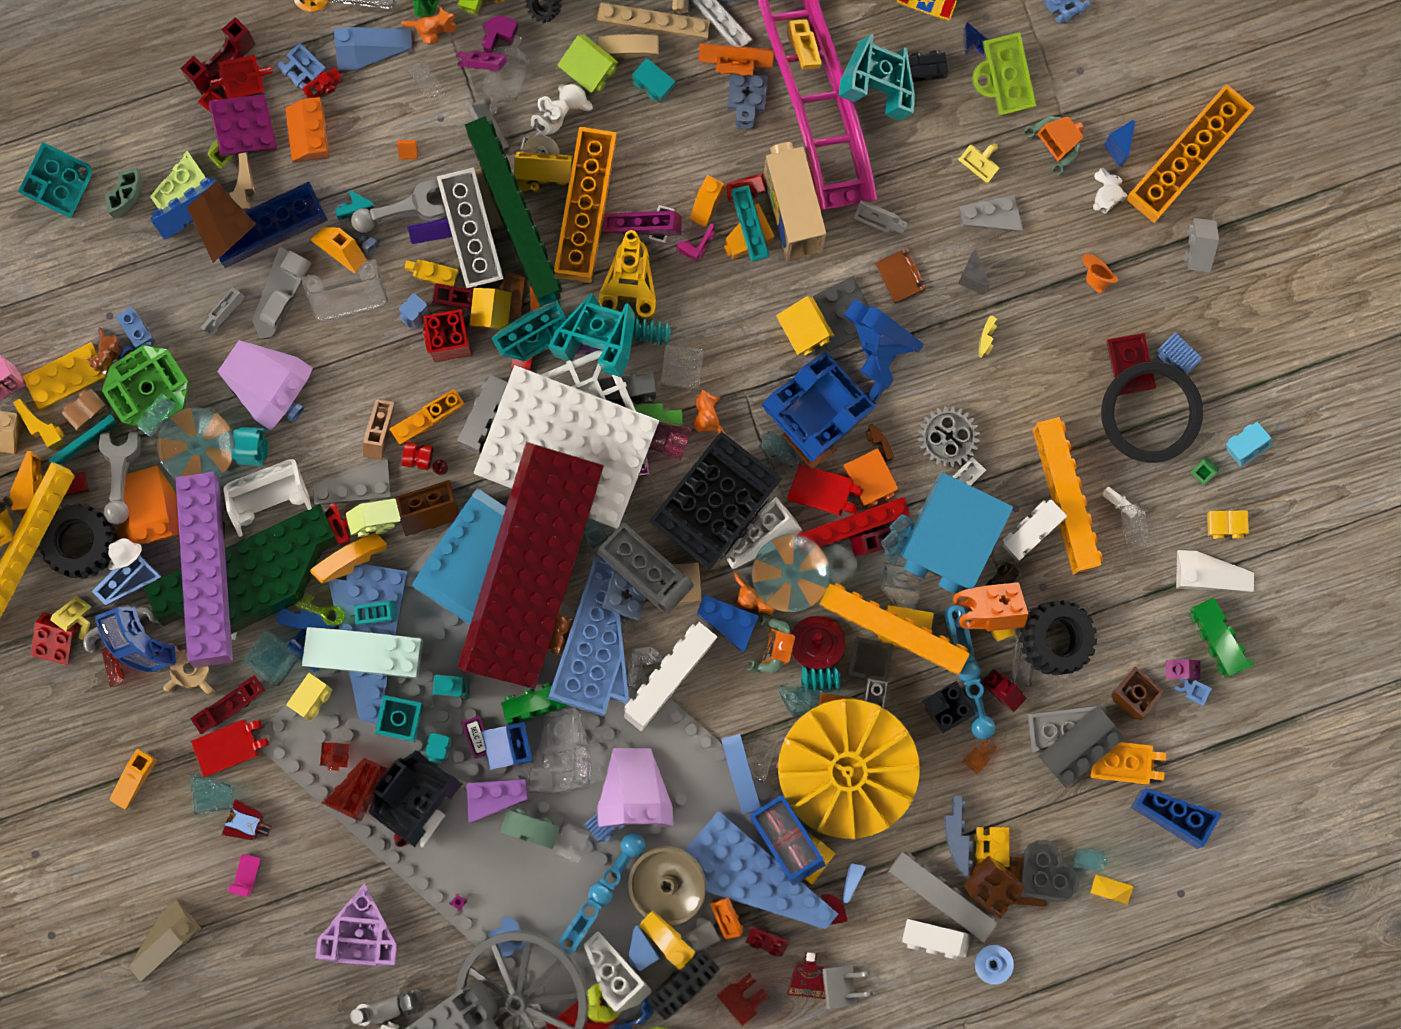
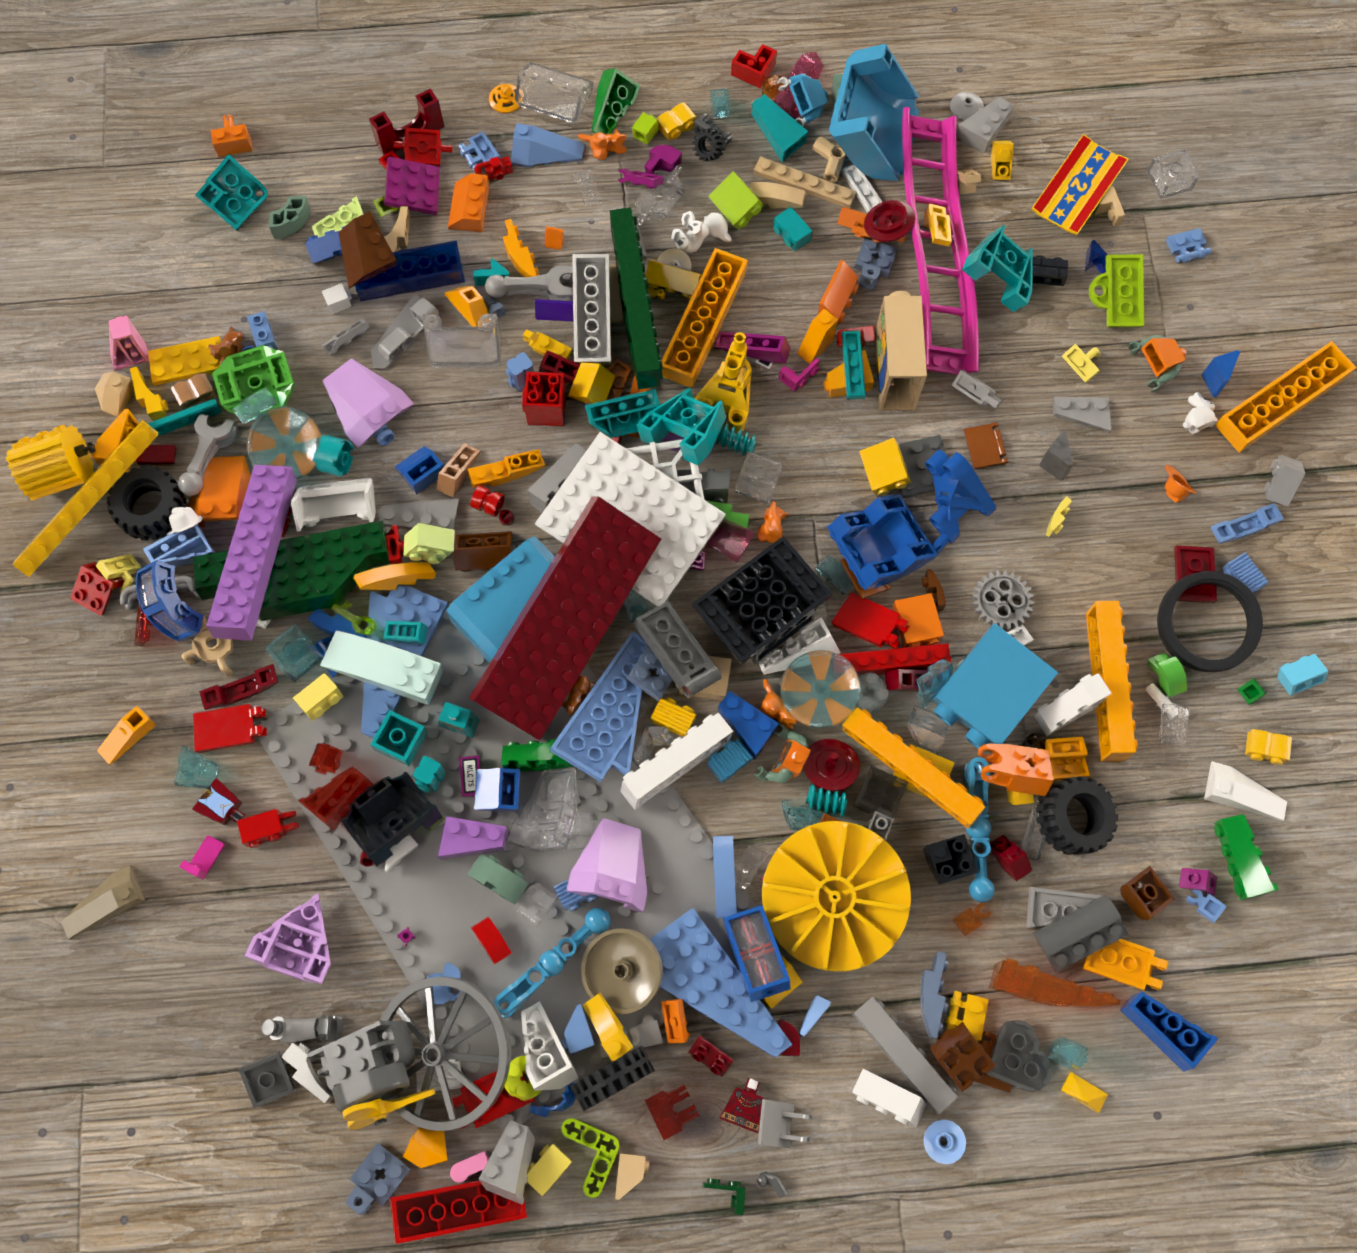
camera: 15 degrees right, 10 degrees down
(32, 114) = (231, 138): none -> orange brick
(201, 271) = (337, 298): none -> white brick
(295, 833) = (265, 827): none -> red hinge
(340, 437) = (420, 469): none -> blue slope
(378, 181) = (518, 255): none -> light orange slope
(539, 886) = (491, 940): none -> red slope
(656, 632) = (673, 717): none -> yellow brick
(718, 147) = (839, 292): none -> orange slope
(719, 662) = (729, 761): none -> dark azure brick
(752, 53) = (889, 220): none -> dark red piece
(1039, 582) = (1067, 757): none -> light orange slope
(1058, 805) = (1044, 988): none -> clear orange wedge
(1122, 474) = (1170, 673): none -> bright green brick
(1172, 300) = (1247, 525): none -> medium blue slope

